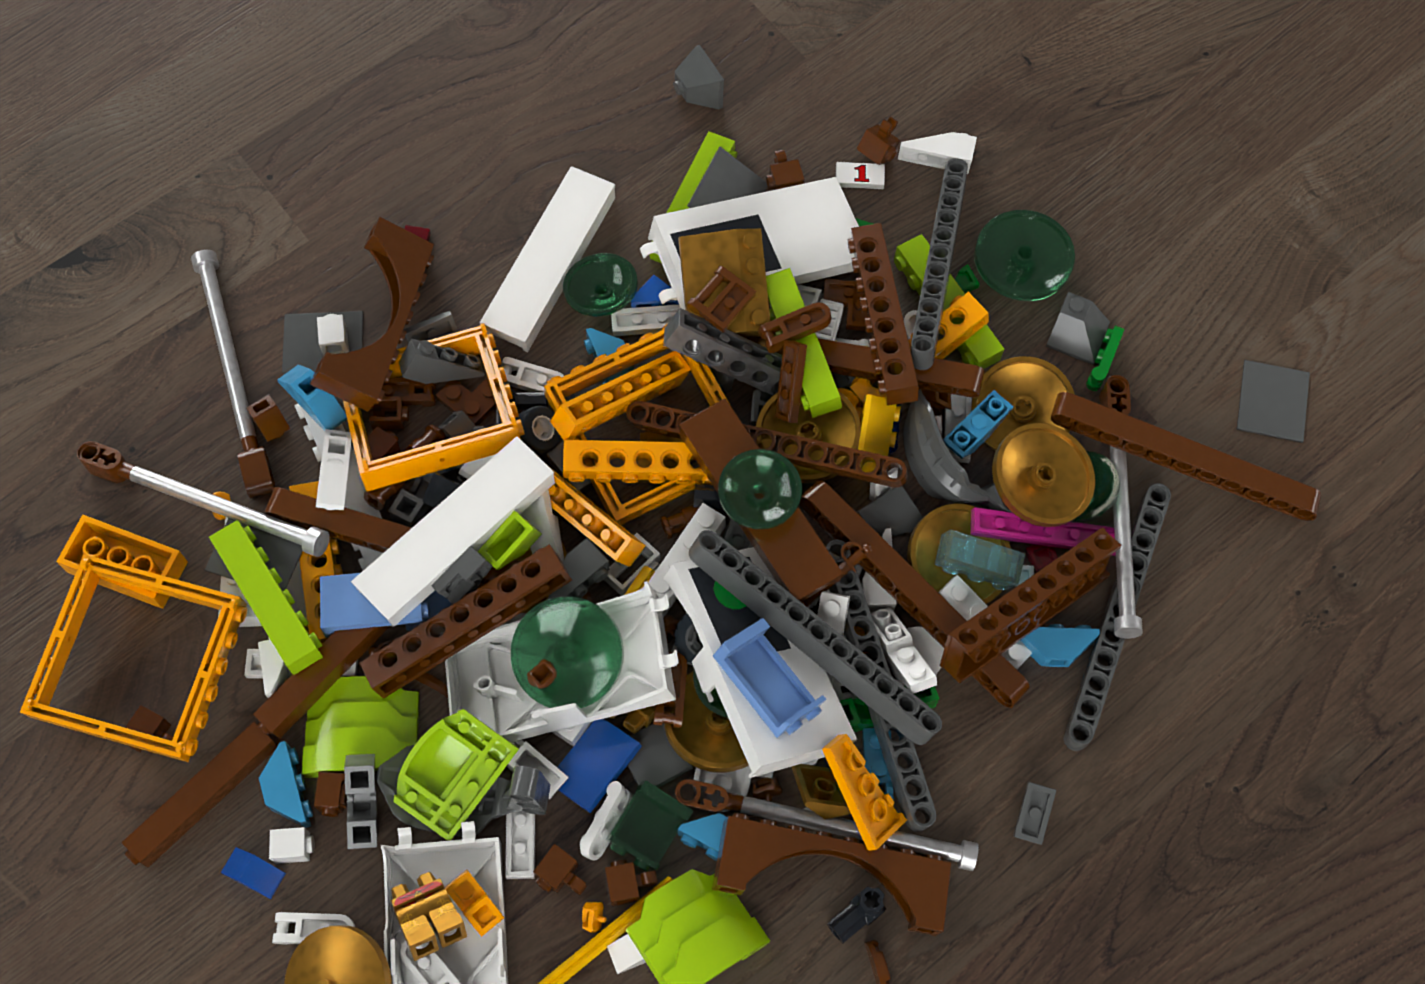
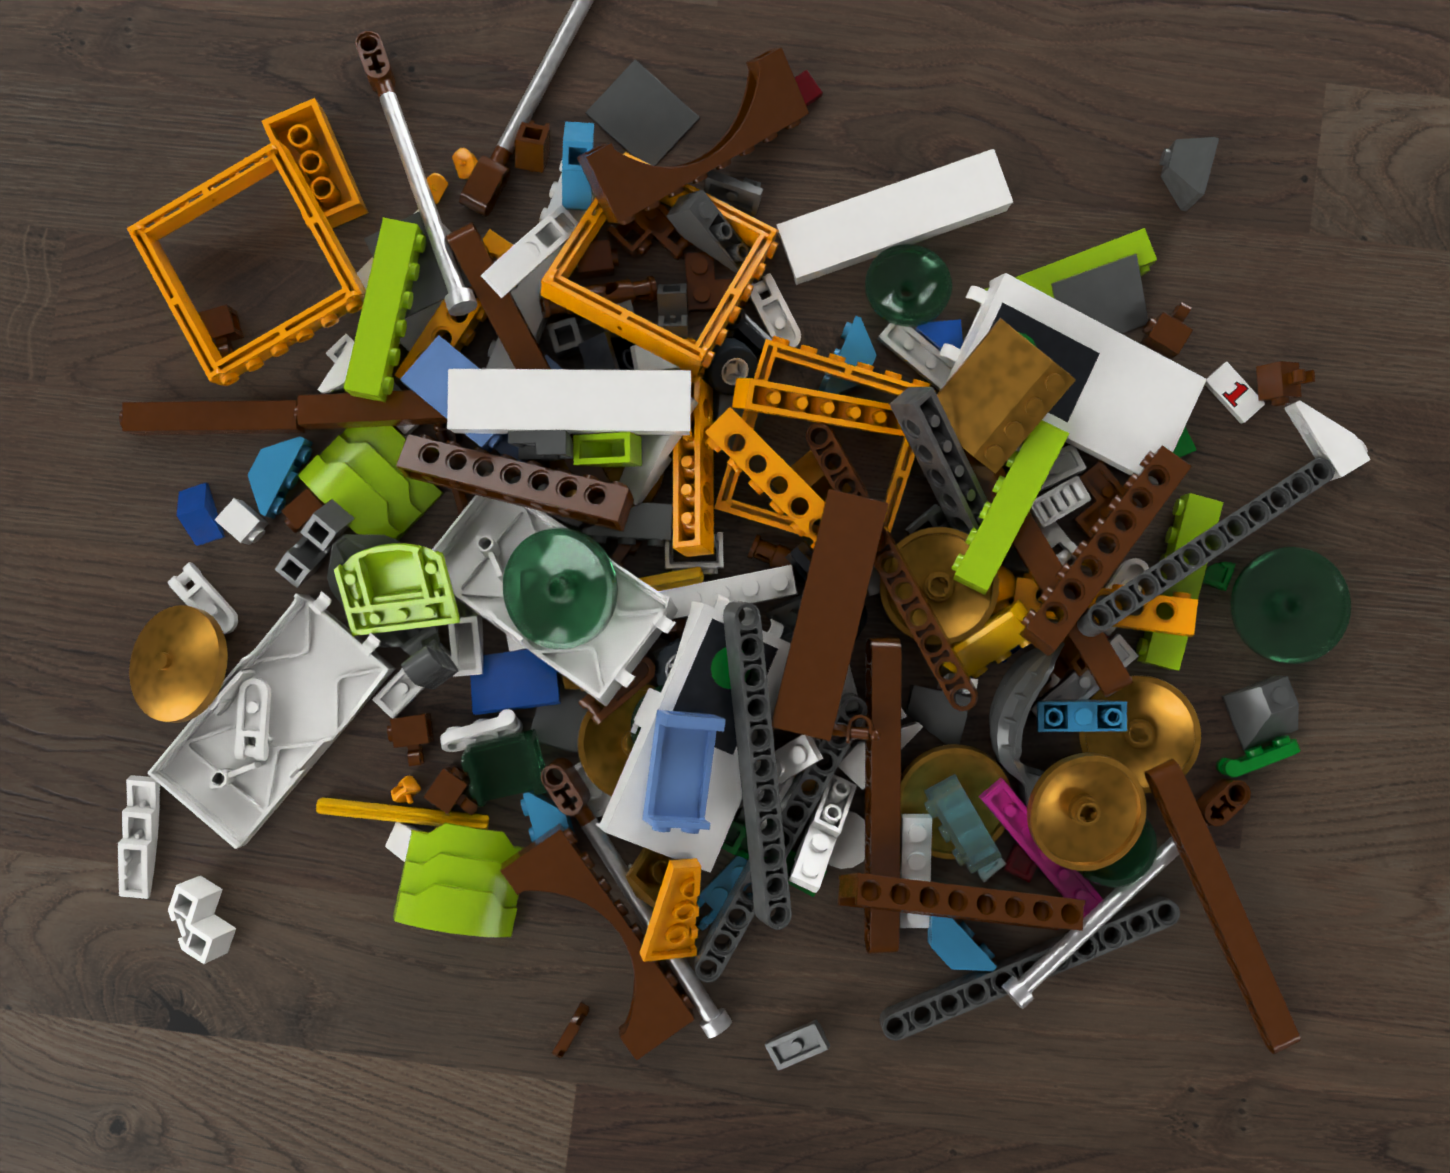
camera: 50 degrees right, 20 degrees up
(228, 471) = (464, 162): none -> light orange piece
(332, 334) = (652, 118): white brick -> none
(422, 906) = (285, 666): pearl gold hips -> none
(474, 902) = (330, 698): light orange slope -> none
(542, 674) = (524, 587): reddish brown piece -> none
(727, 304) = (980, 421): reddish brown plate -> none
(762, 473) = (853, 609): clear green dish -> none
(791, 381) = (964, 535): reddish brown tile -> none
(795, 325) = (1016, 493): reddish brown plate -> none
(862, 911) = (598, 982): black piece -> none
(1273, 401) = (1355, 927): dark grey piece -> none

